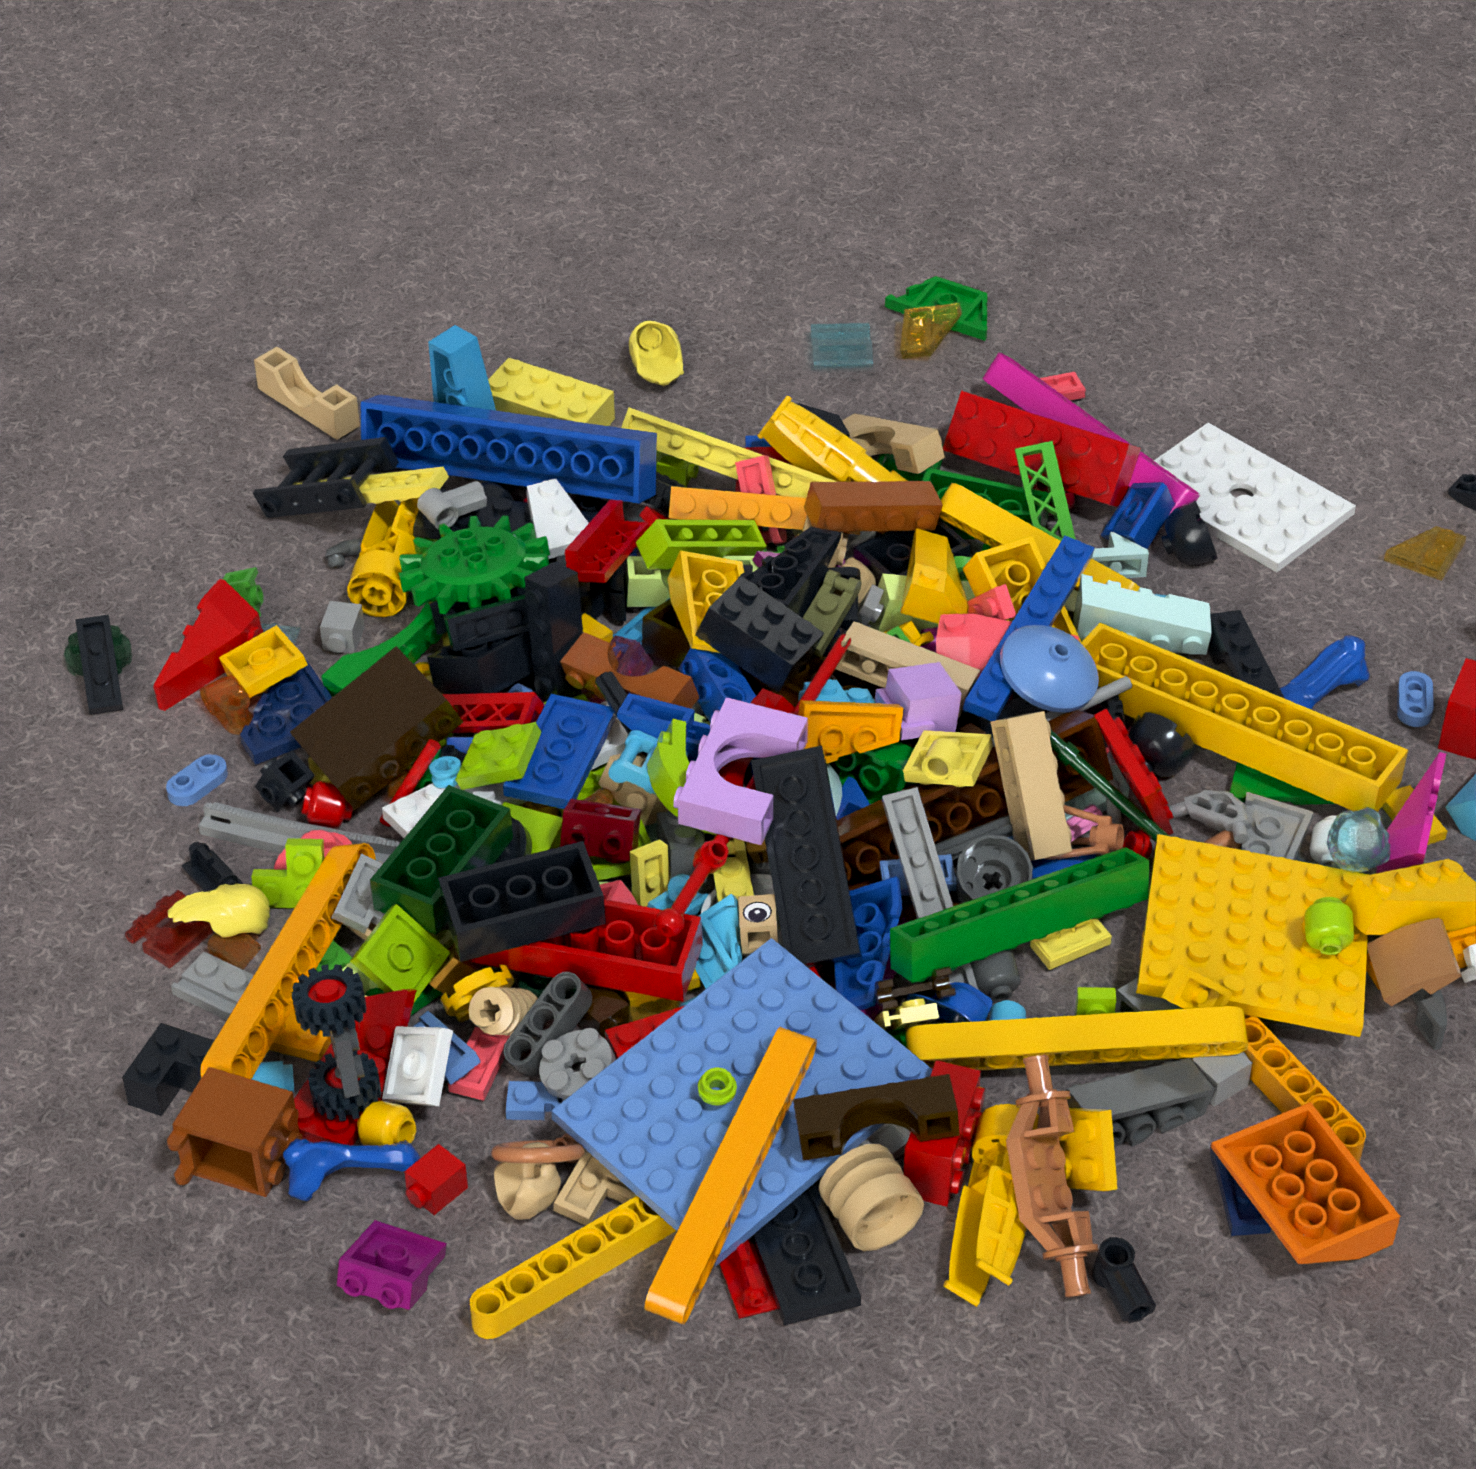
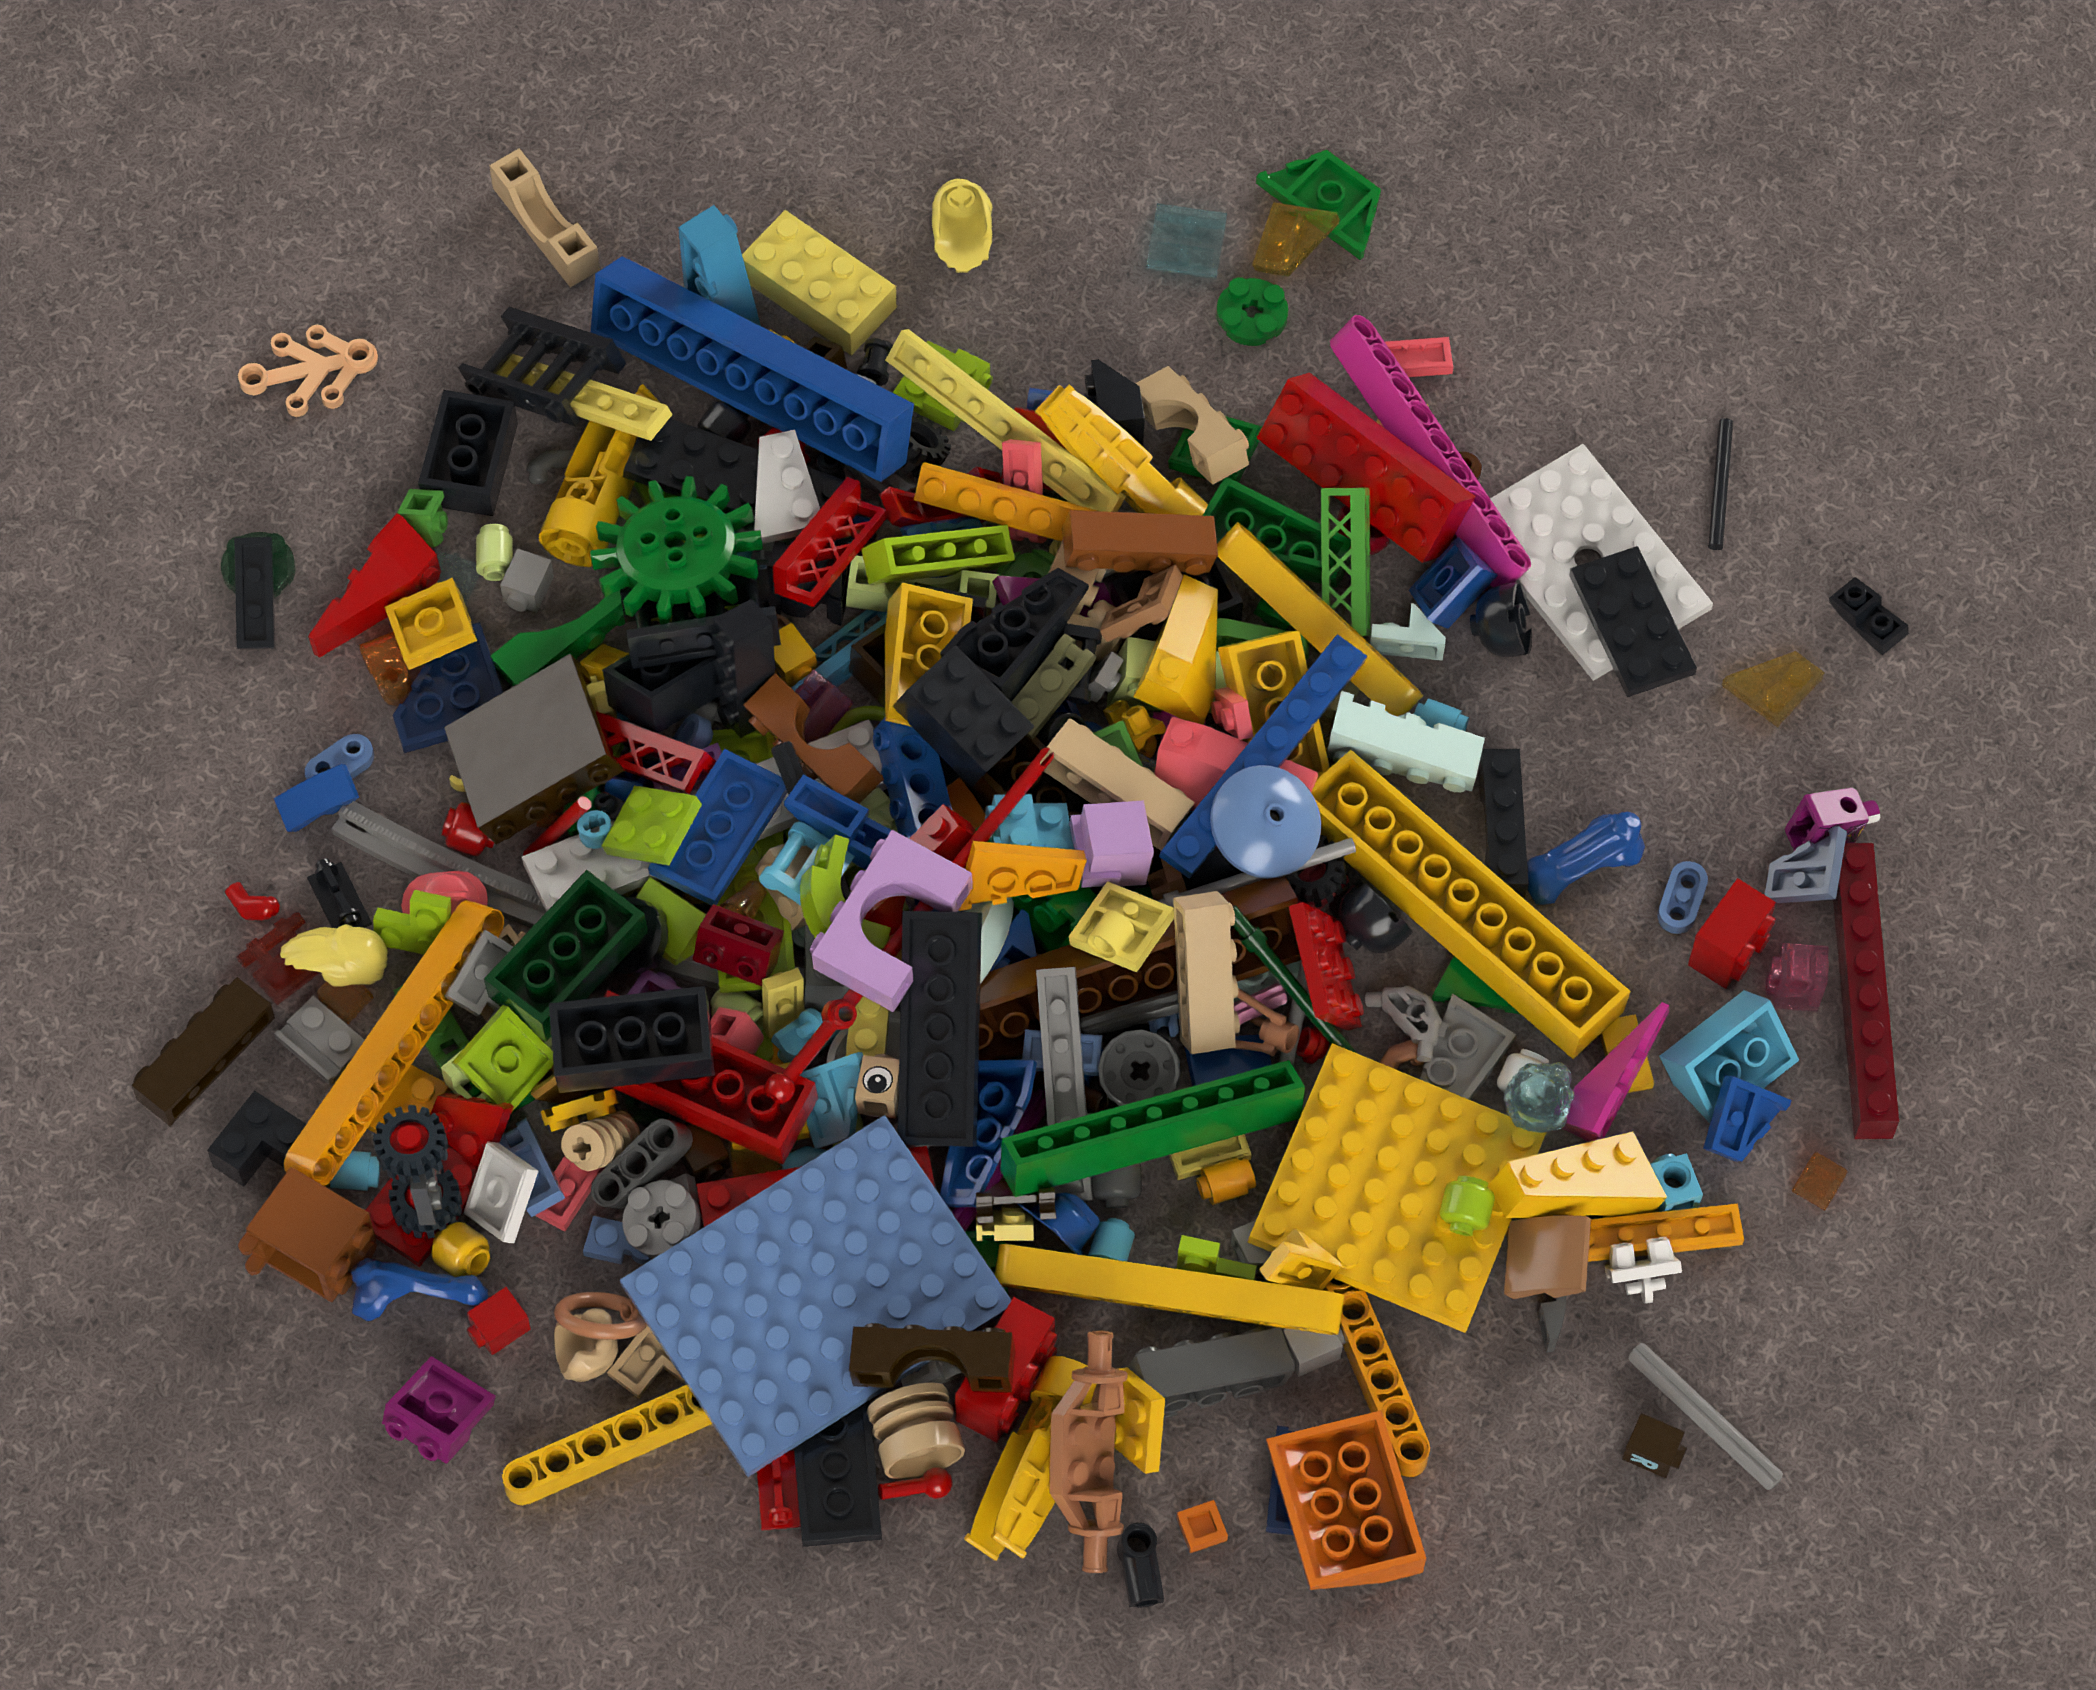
camera: 10 degrees right, 20 degrees up
(104, 1009) = (202, 1051): none -> dark brown brick
(133, 894) = (252, 906): none -> red arm
(159, 505) = (313, 367): none -> light nougat plant
(179, 800) = (316, 797): none -> blue slope
(275, 542) = (469, 451): none -> black brick
(284, 781) = (439, 792): black brick -> none
(307, 612) = (493, 551): none -> yellowish green brick
(448, 506) = (660, 458): light grey piece -> none
(717, 1078) = (782, 1278): lime plate -> none
(730, 1176) = (779, 1391): light orange beam -> none
(896, 373) = (1252, 292): none -> green plate
(897, 541) = (1150, 606): none -> medium nougat plate
(897, 1249) = (934, 1483): none -> red bar
(1095, 959) = (1226, 1180): none -> light orange brick
(1169, 1239) = (1202, 1526): none -> orange plate
(1297, 521) = (1632, 621): none -> black plate
(1328, 435) = (1720, 485): none -> black bar

